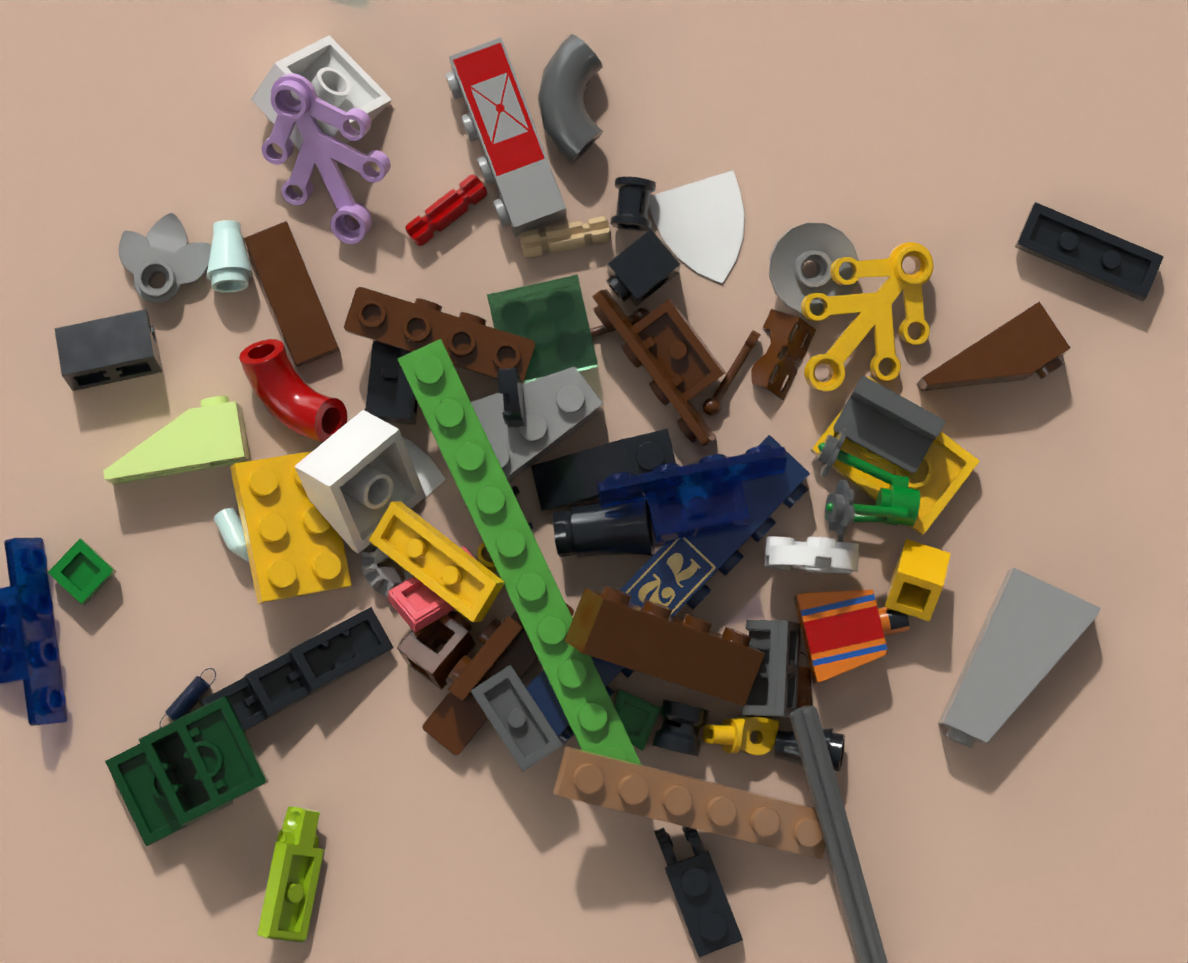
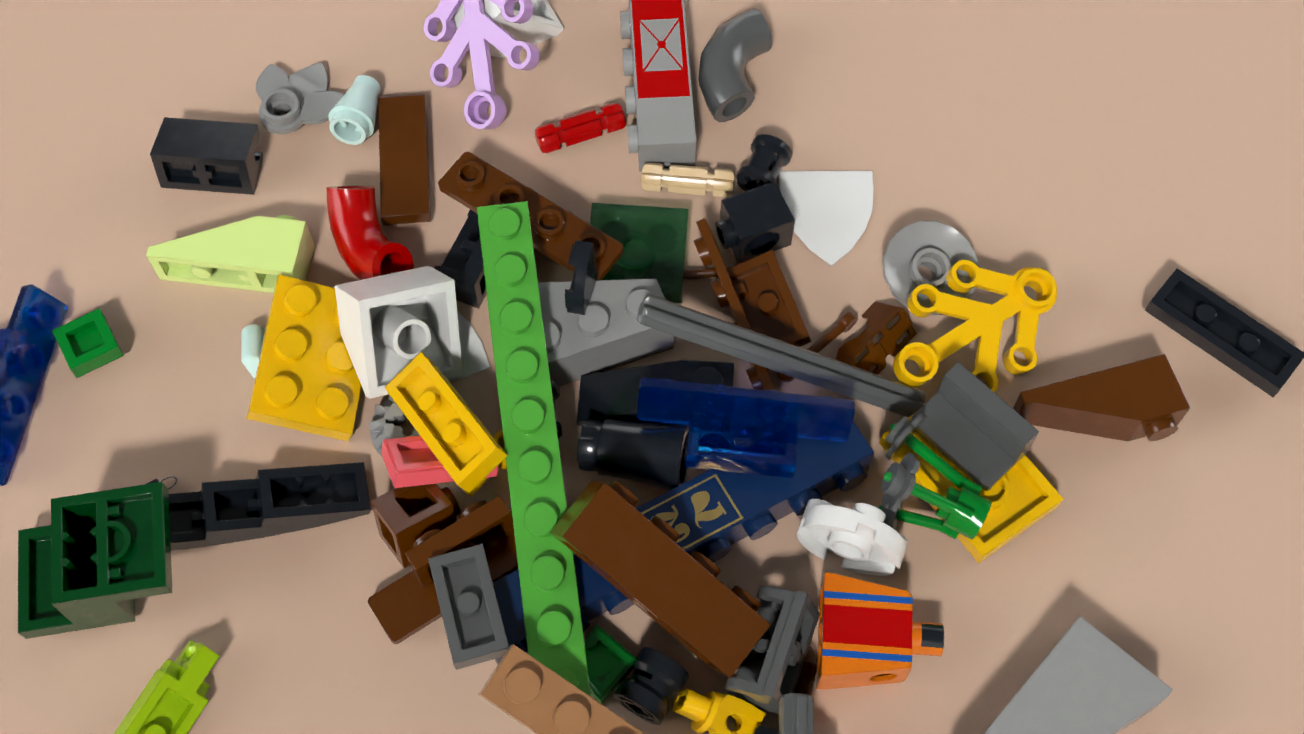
camera: 15 degrees right, 20 degrees down
(706, 410) = (779, 356): none -> dark grey axle
(917, 580) = (964, 600): yellow brick -> none

